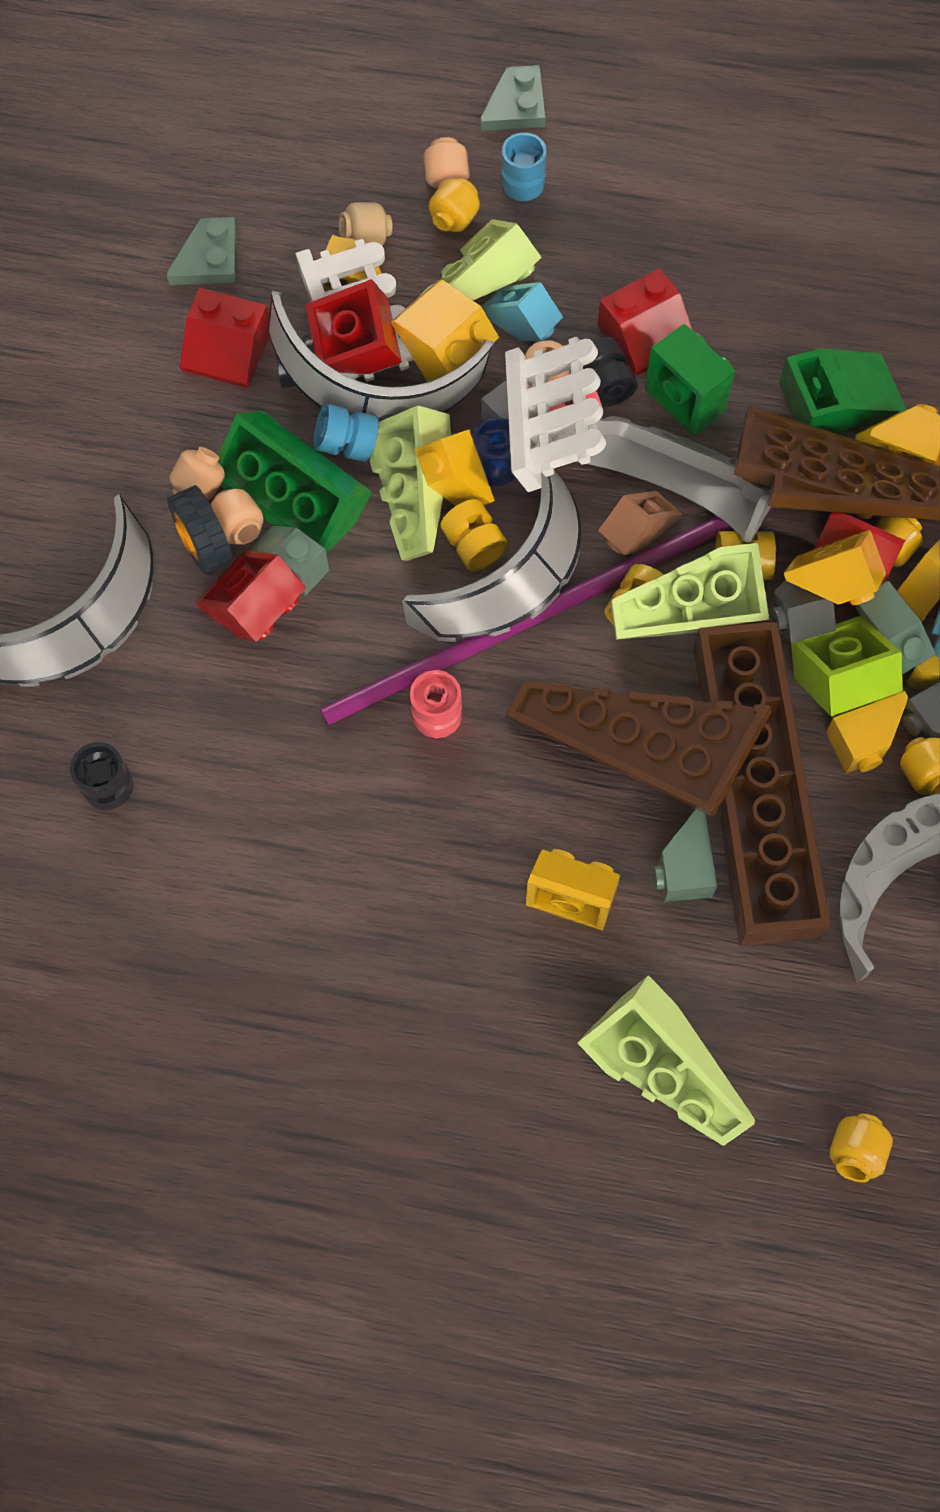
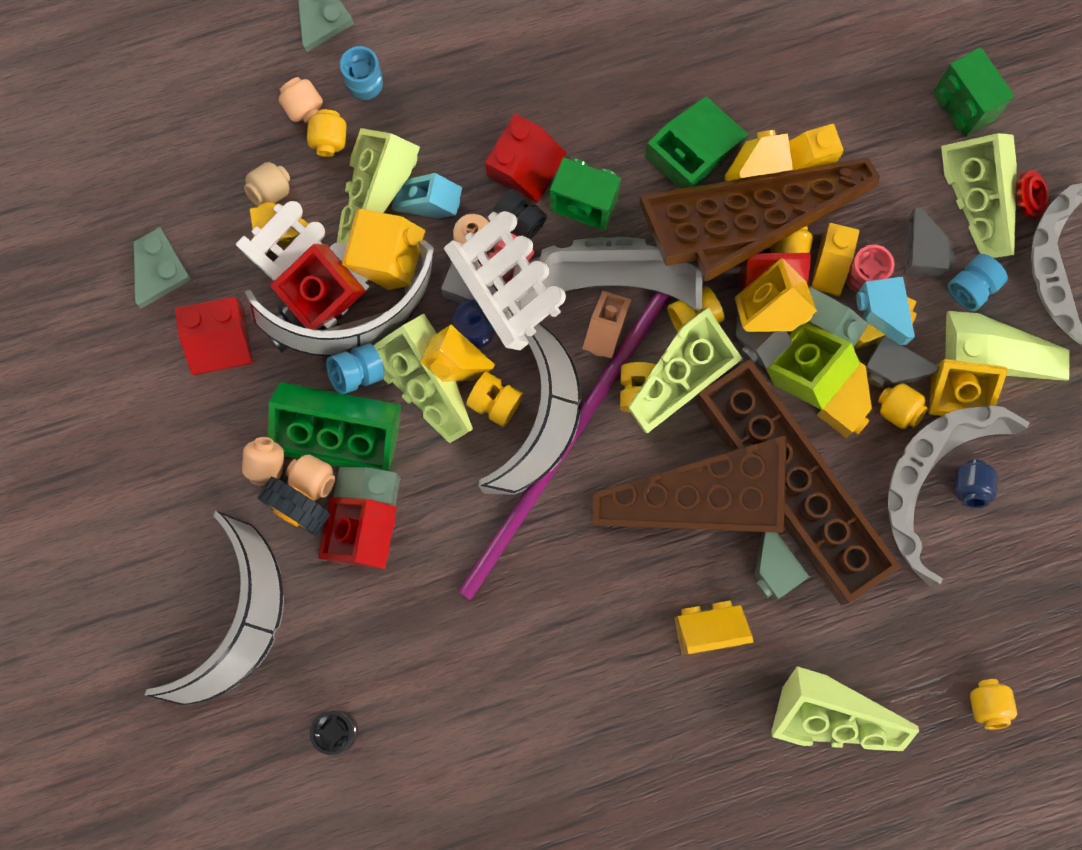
camera: 30 degrees left, 10 degrees up
(436, 703) = (541, 545): coral wheel -> none

